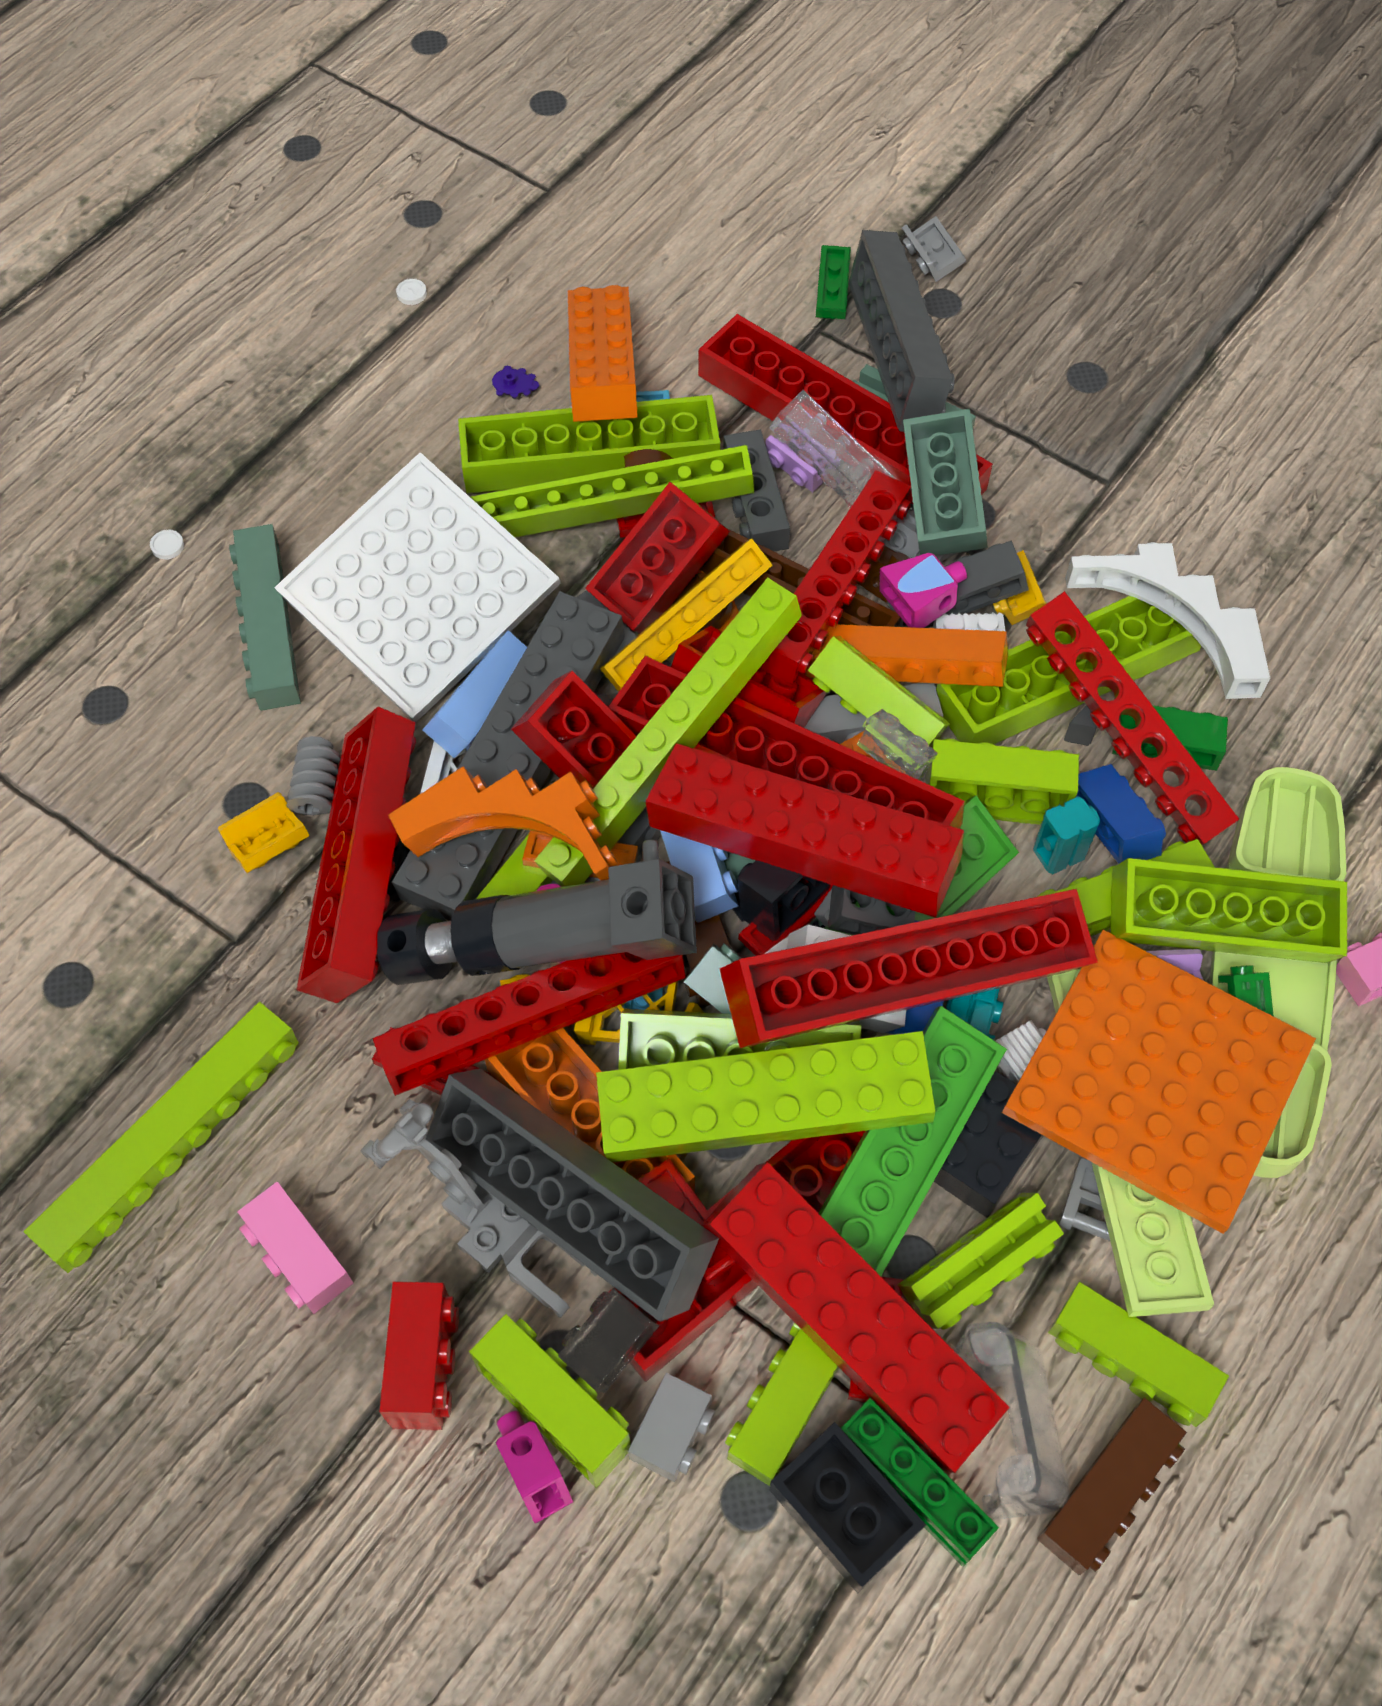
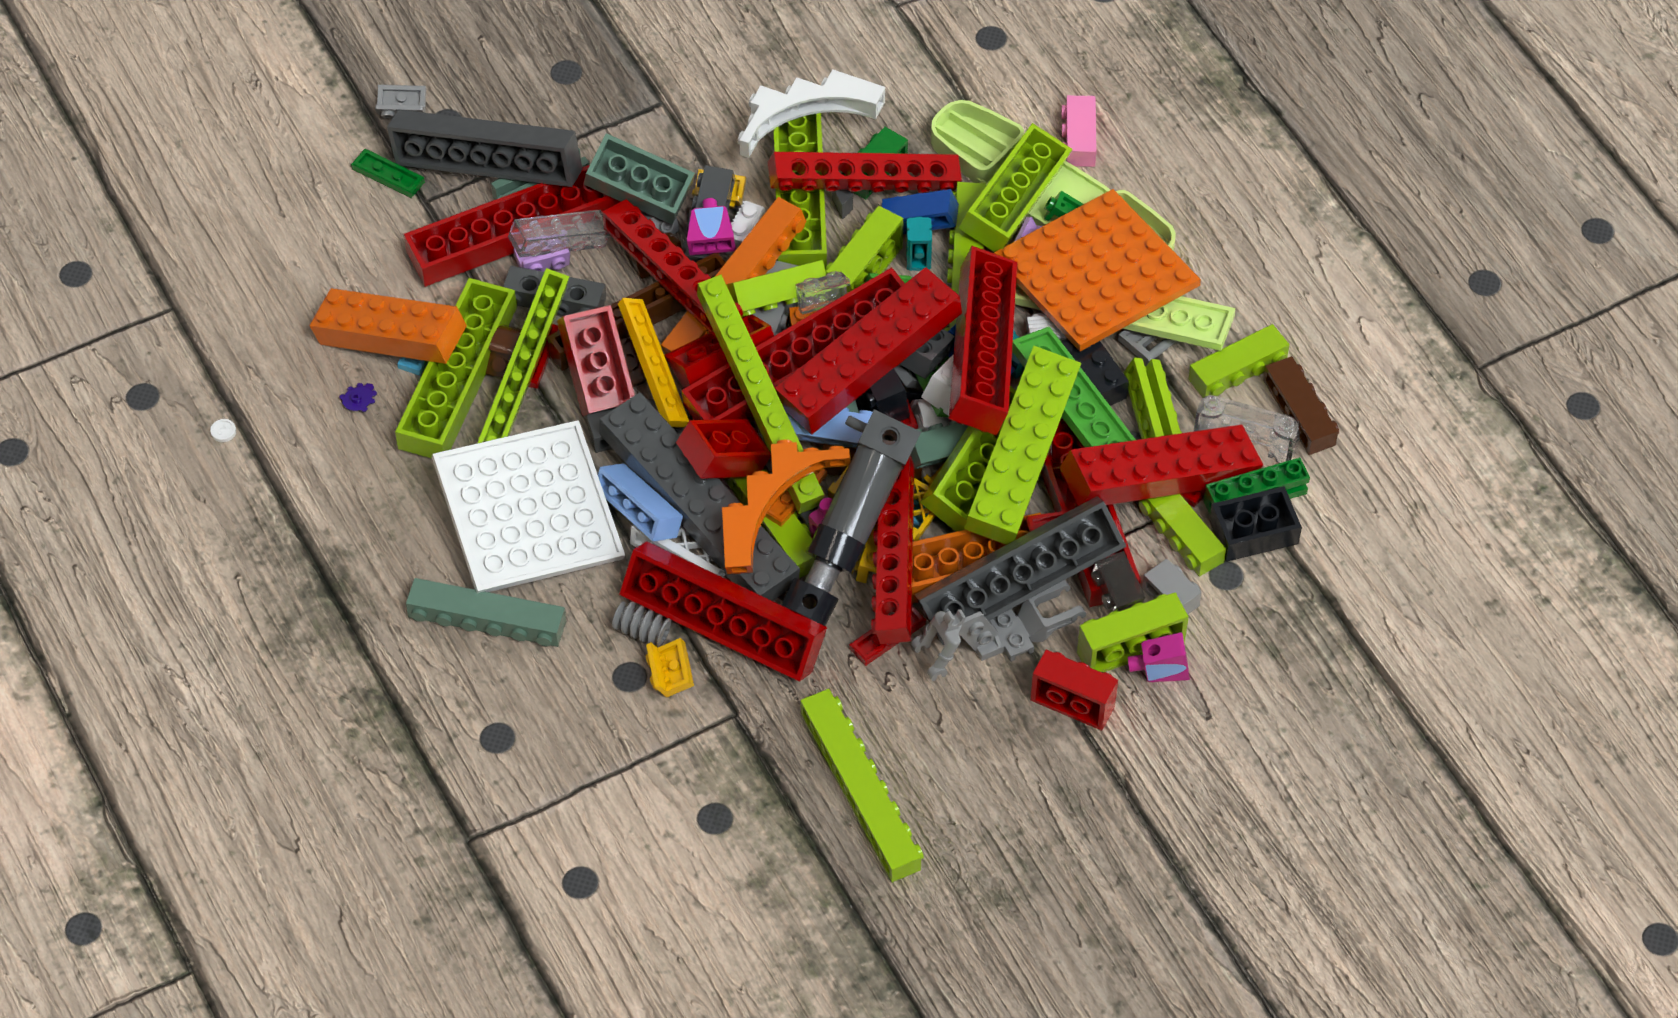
camera: 65 degrees left, 5 degrees down
(167, 544) = (375, 659): white piece -> none
(293, 1249) = (971, 738): bright pink brick -> none

